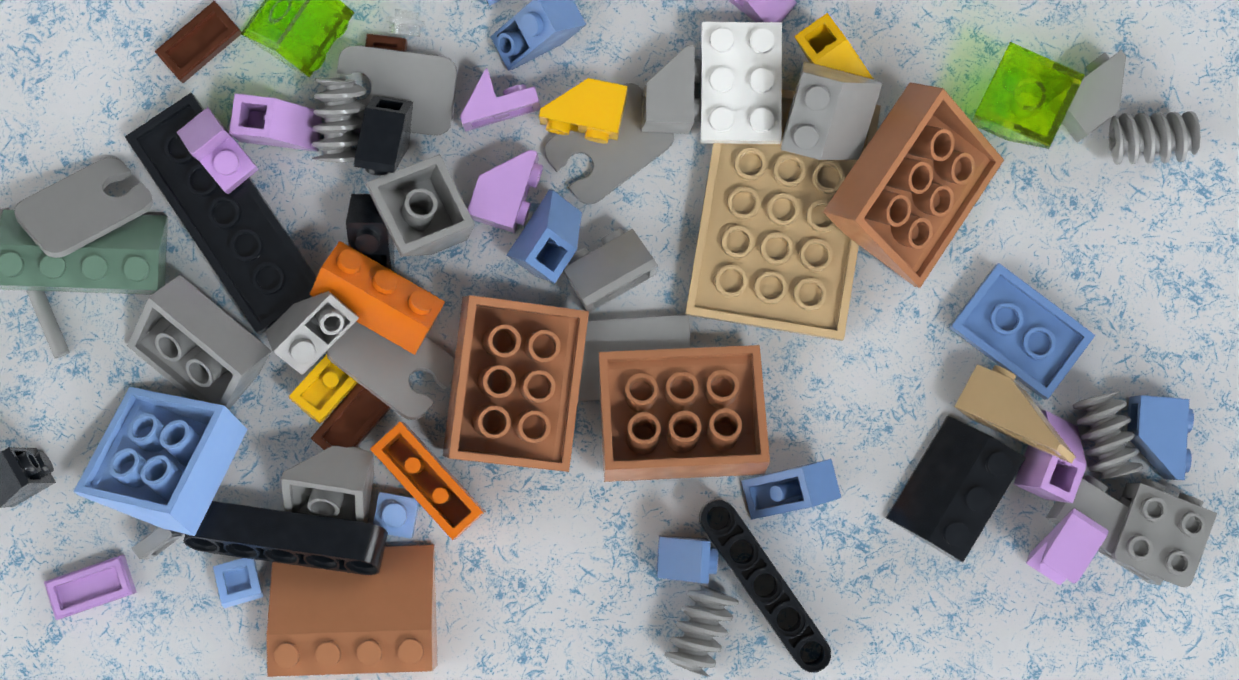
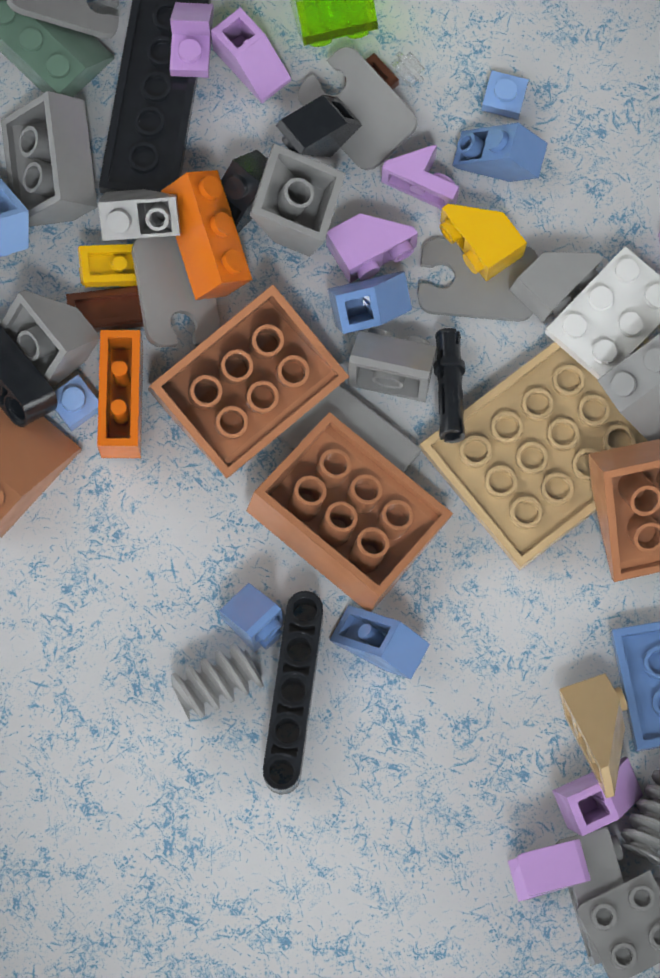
camera: 45 degrees right, 10 degrees down
(338, 119) = (299, 87): light grey piece -> none
(657, 238) = (449, 372): none -> black pin
(955, 488) = (504, 753): black slope -> none

